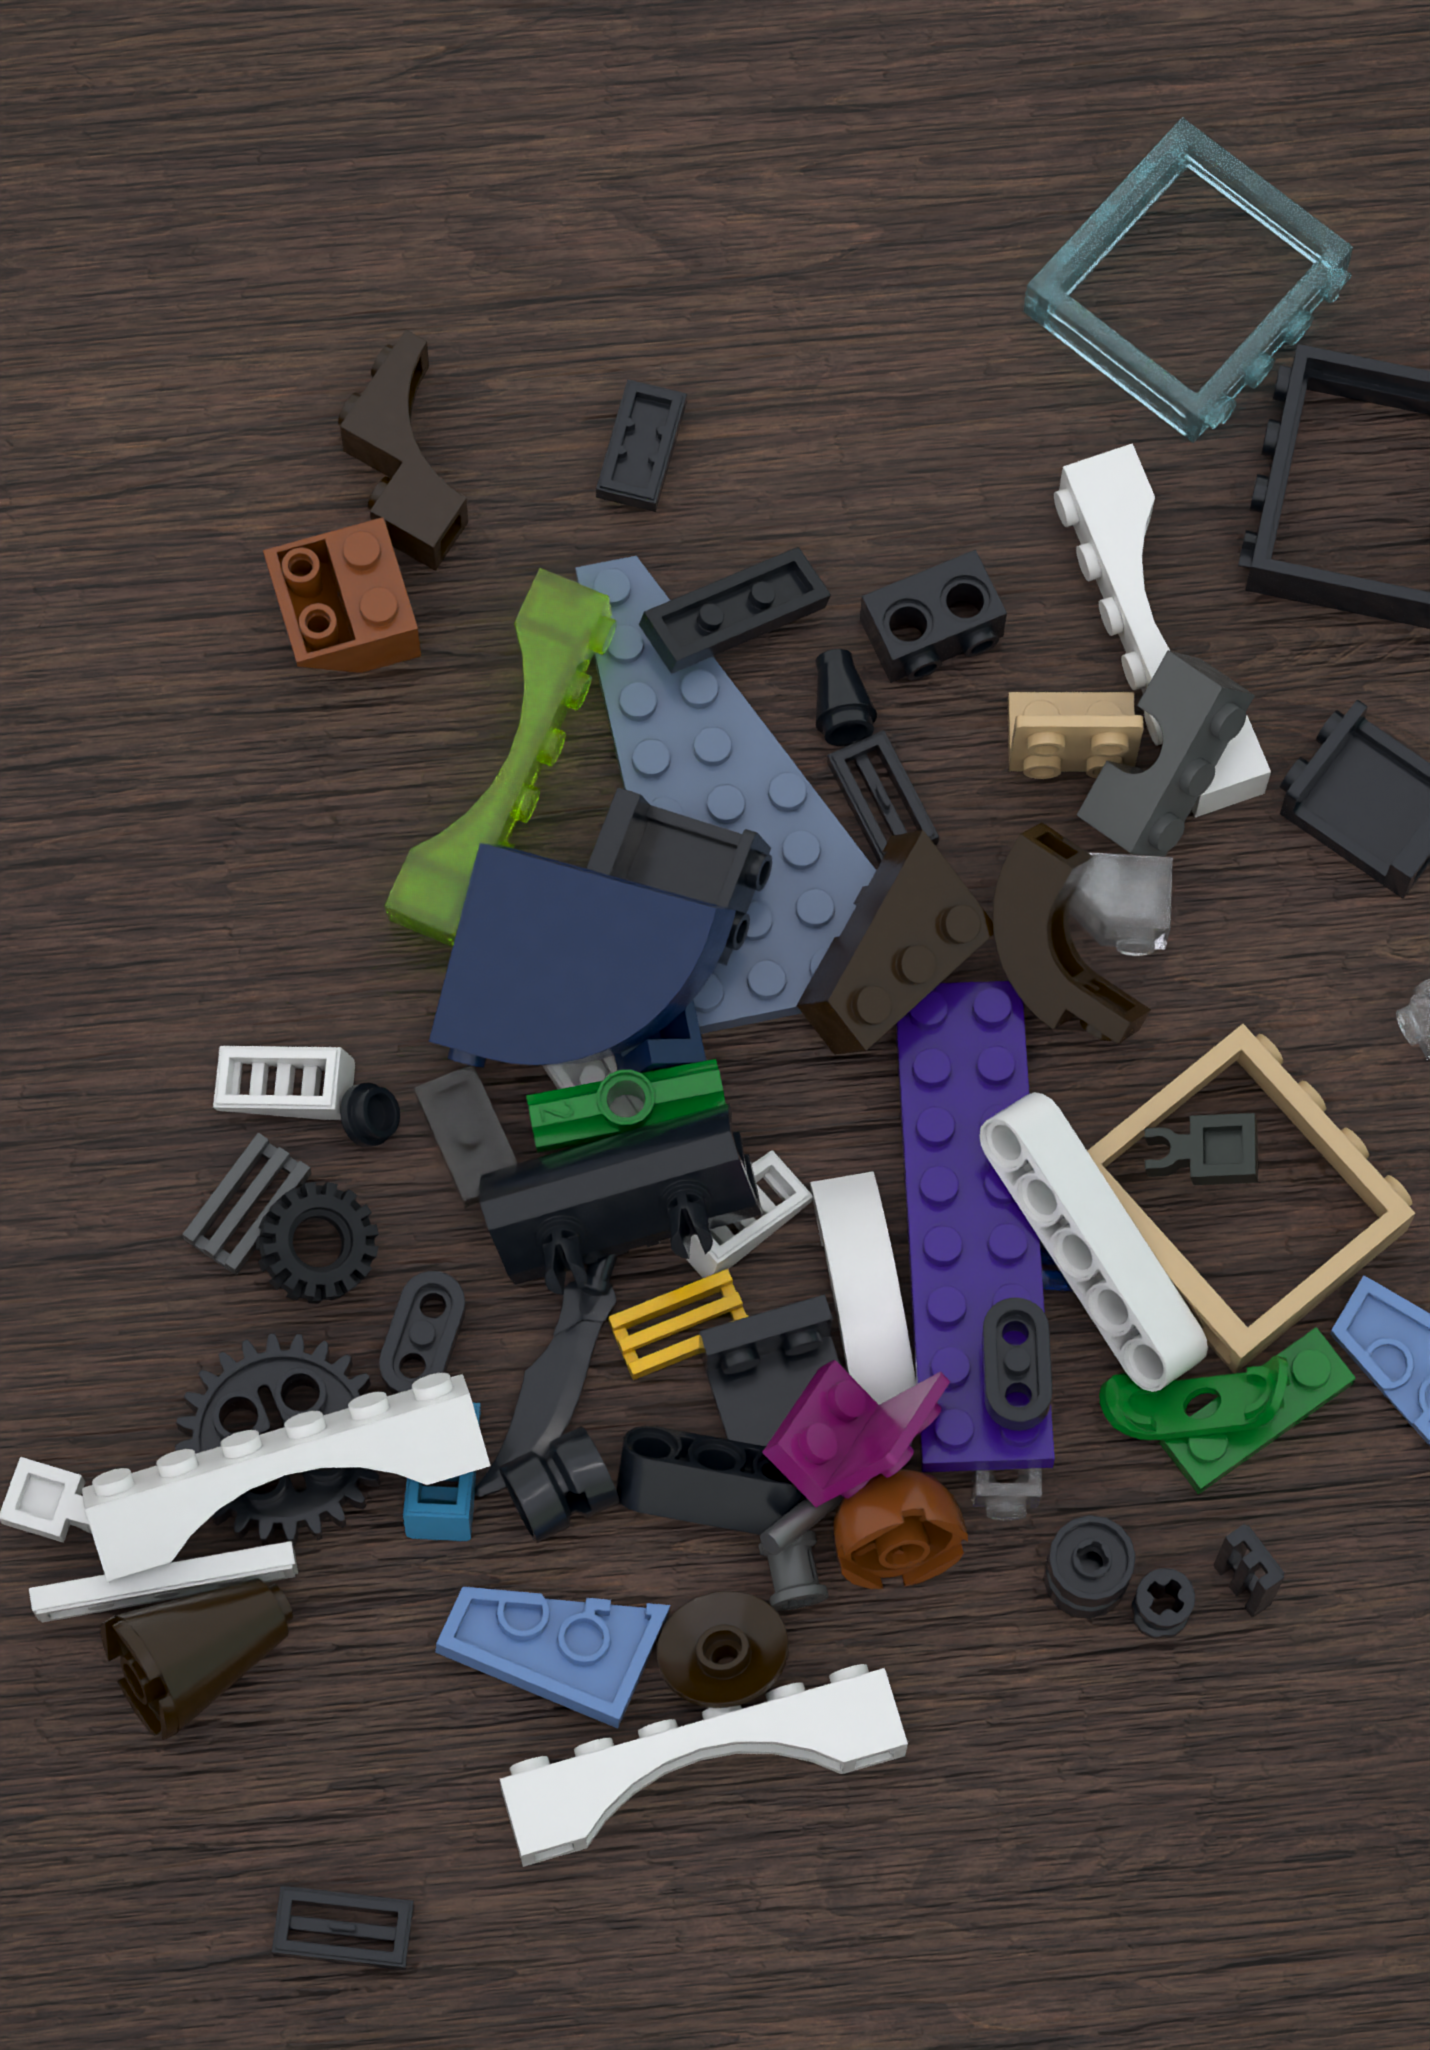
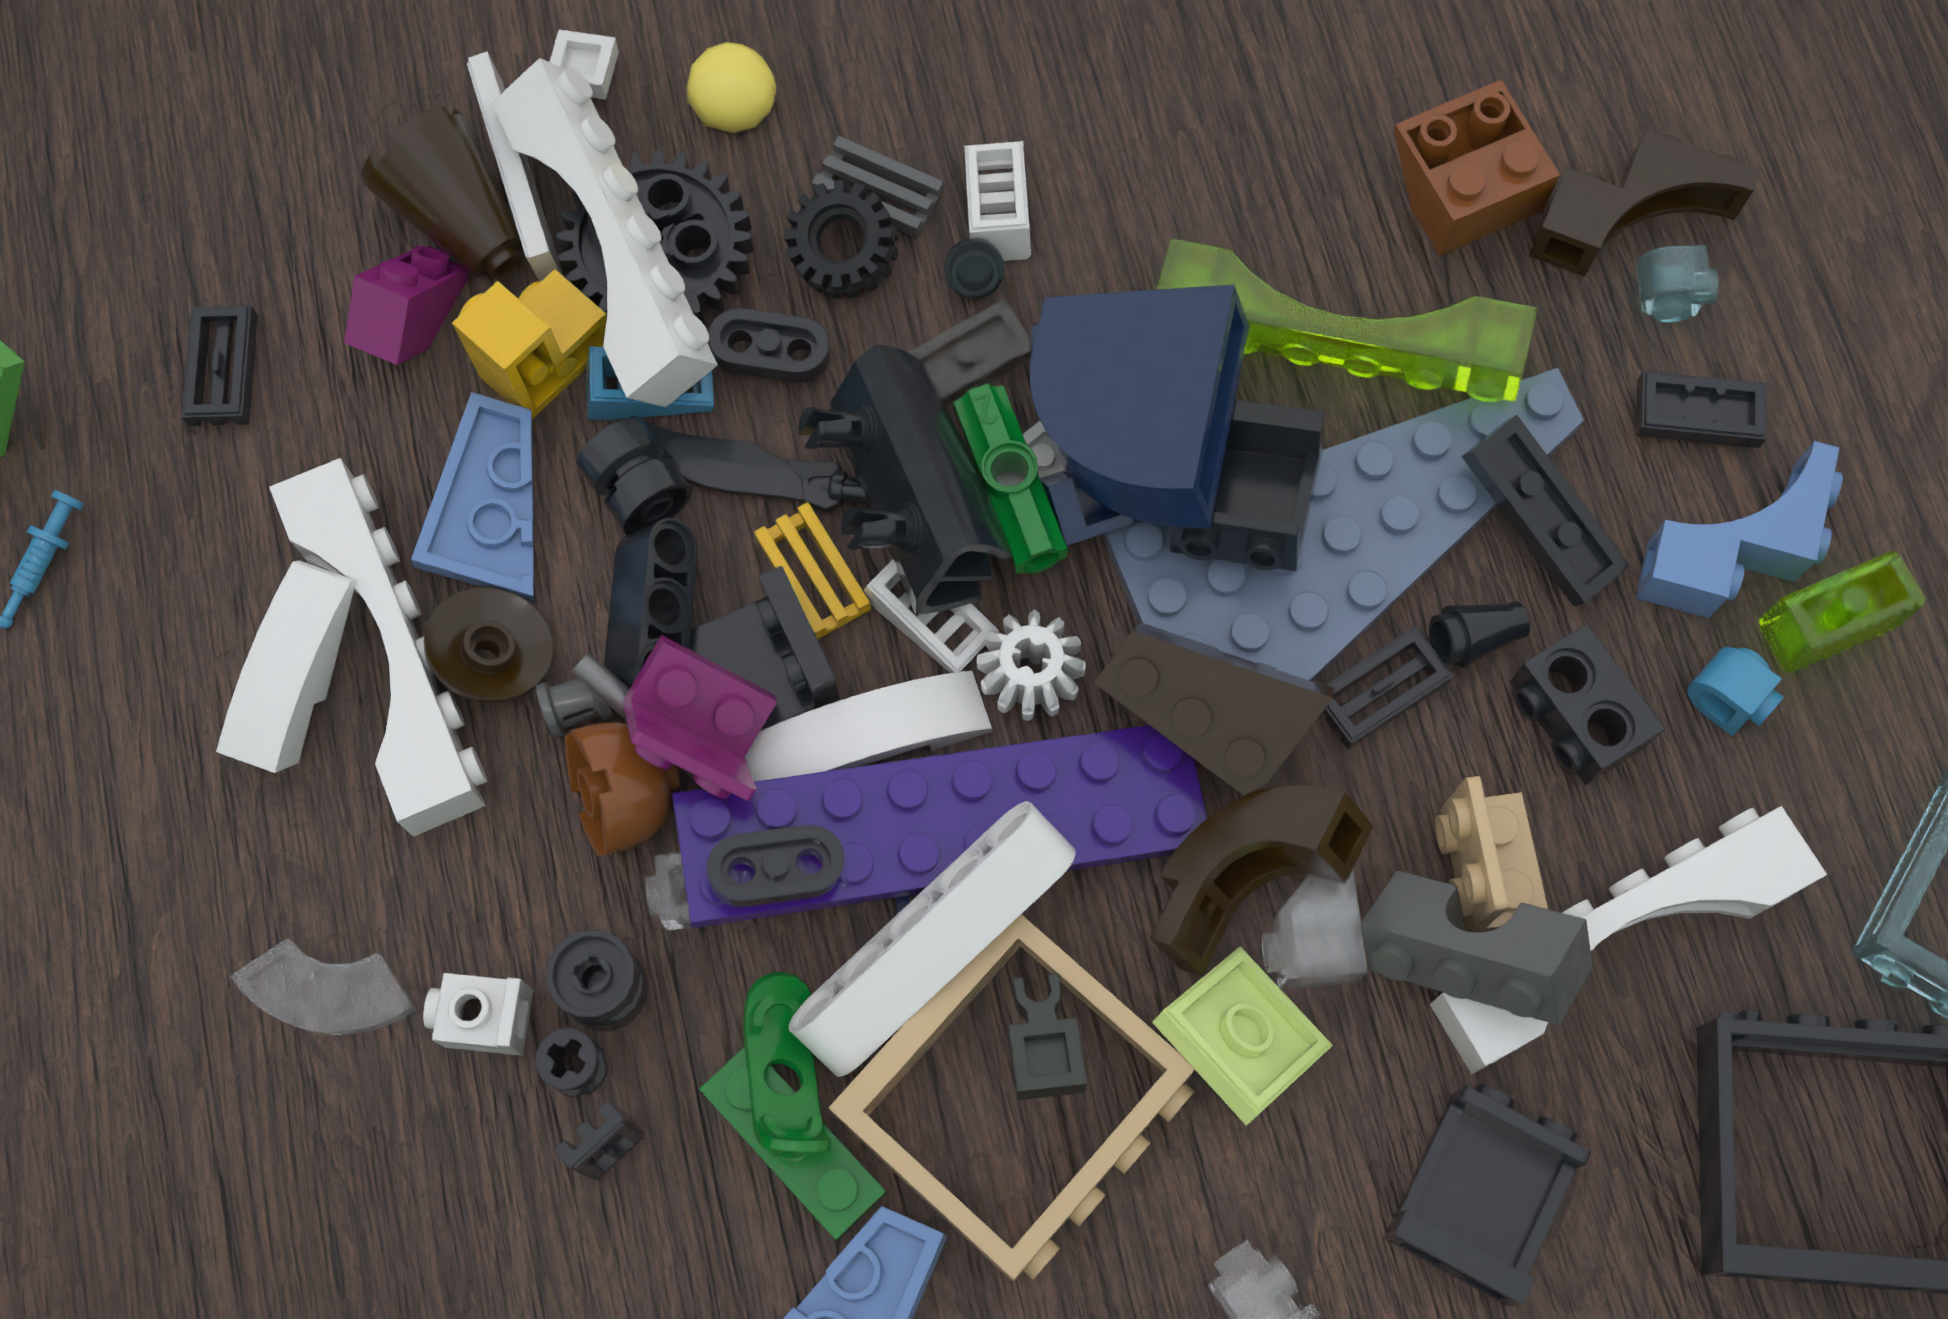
camera: 85 degrees right, 0 degrees up
(98, 1344) = (731, 87): none -> light yellow hair
(312, 1711) = (403, 303): none -> magenta slope
(388, 1569) = (533, 342): none -> yellow brick
(504, 436) = (1676, 282): none -> clear light blue plate
(722, 1851) = (287, 668): none -> white slope
(788, 403) = (1704, 564): none -> medium blue arch
(846, 1121) = (1040, 646): none -> white gear
(879, 369) = (1841, 611): none -> clear neon green brick
(936, 479) = (1735, 688): none -> dark azure plate
(1061, 1849) = (324, 995): none -> clear tile
(1109, 1661) = (502, 1019): none -> white brick
(1212, 980) = (1242, 1034): none -> yellowish green plate

